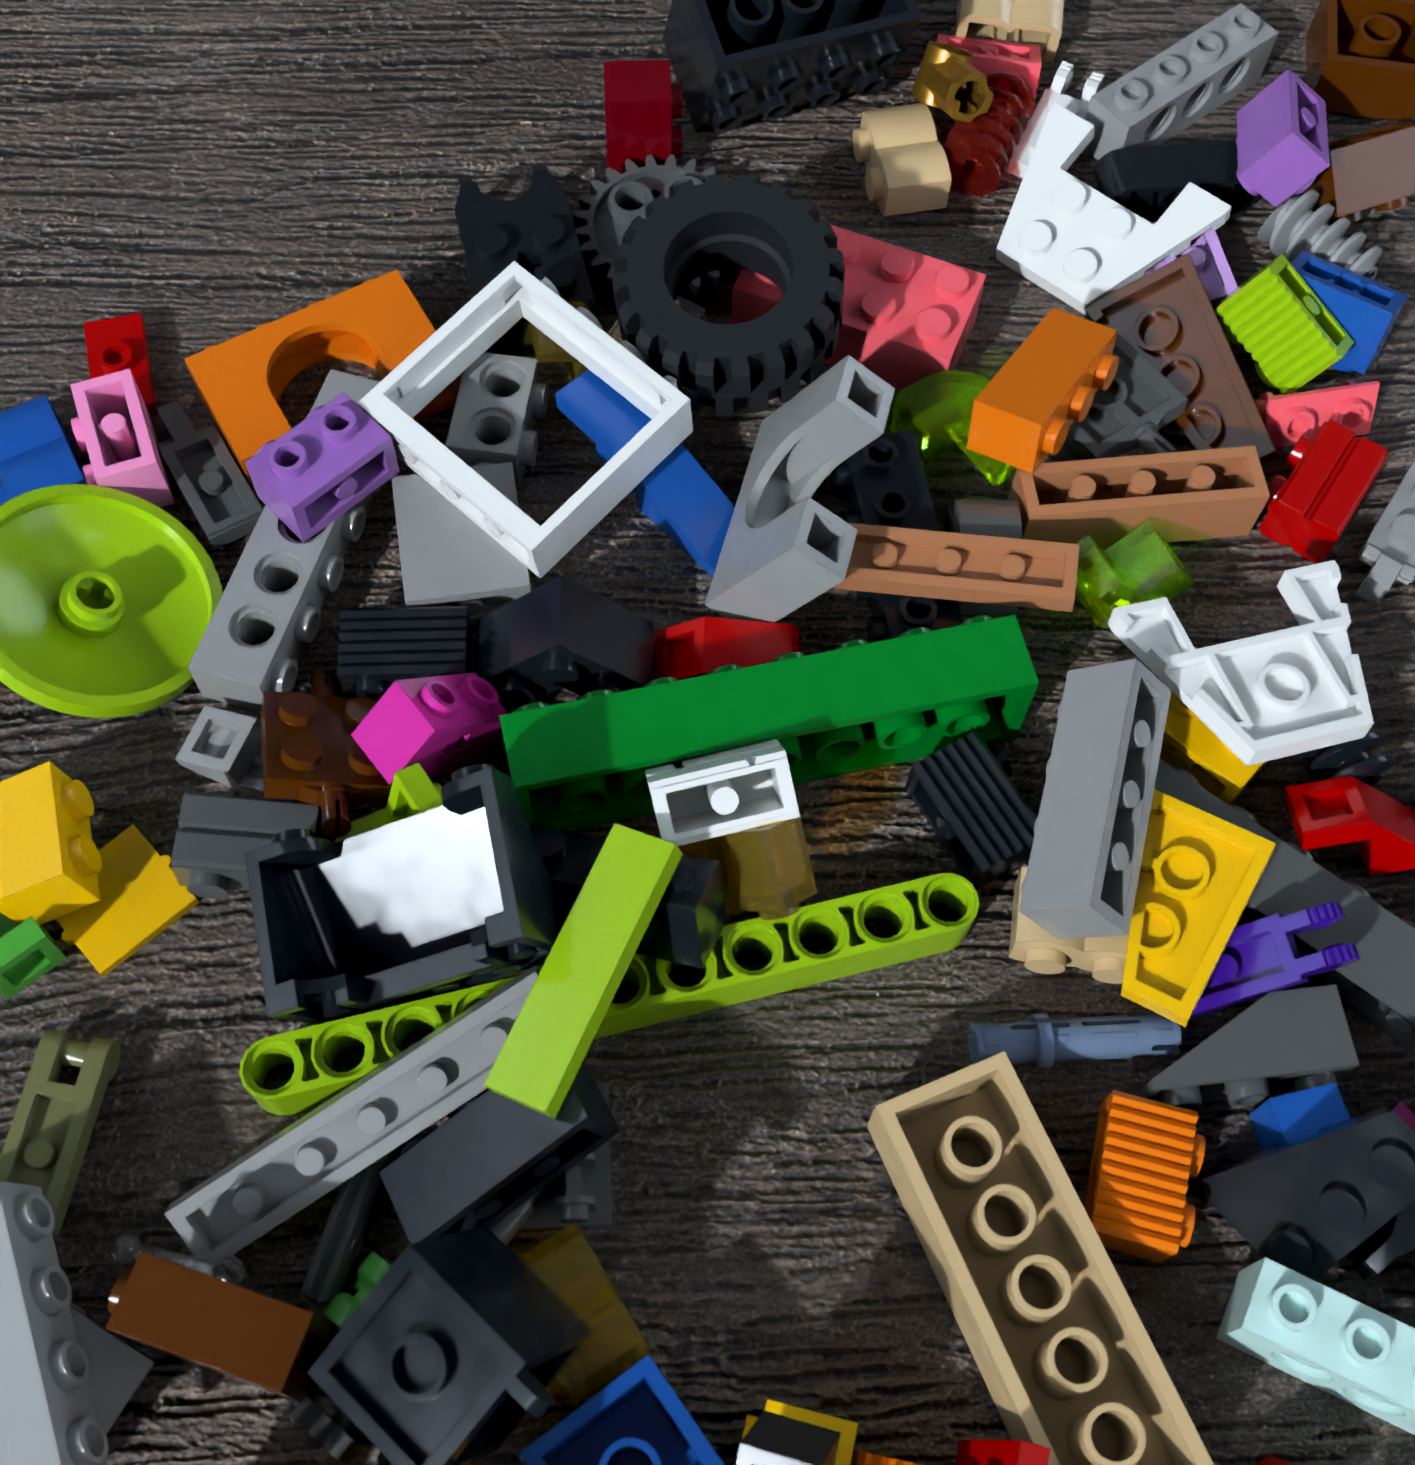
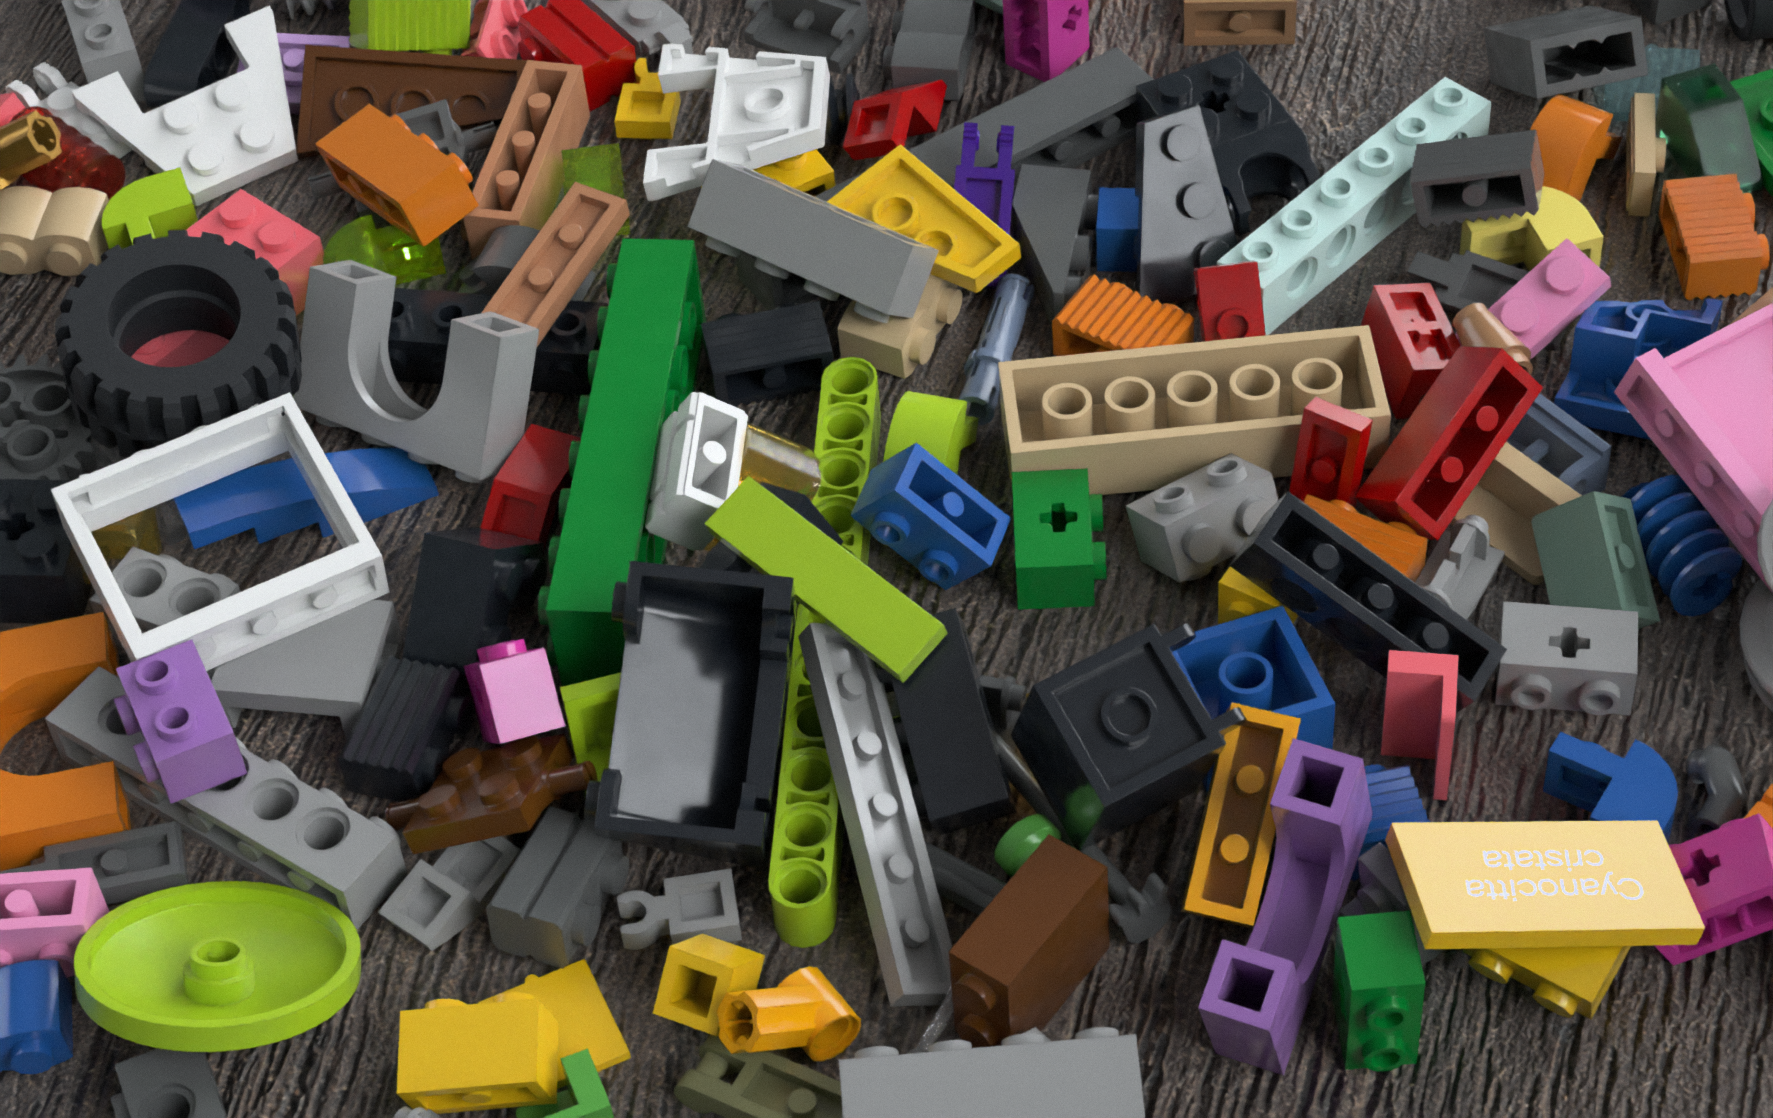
camera: 65 degrees left, 15 degrees down
(134, 1118) = (796, 1013): none -> light orange piece
(150, 1021) = (700, 975): none -> yellow brick
(241, 973) = (688, 908): none -> light grey plate
(773, 1047) = (930, 517): none -> blue brick
(839, 1156) = (1054, 539): none -> green brick
(888, 1354) = (1201, 517): none -> light grey brick
(889, 1009) = (934, 424): none -> lime brick
(944, 225) = (148, 207): none -> lime brick
(1196, 1297) = (1229, 301): none -> red plate
(1259, 574) = (644, 107): none -> yellow plate

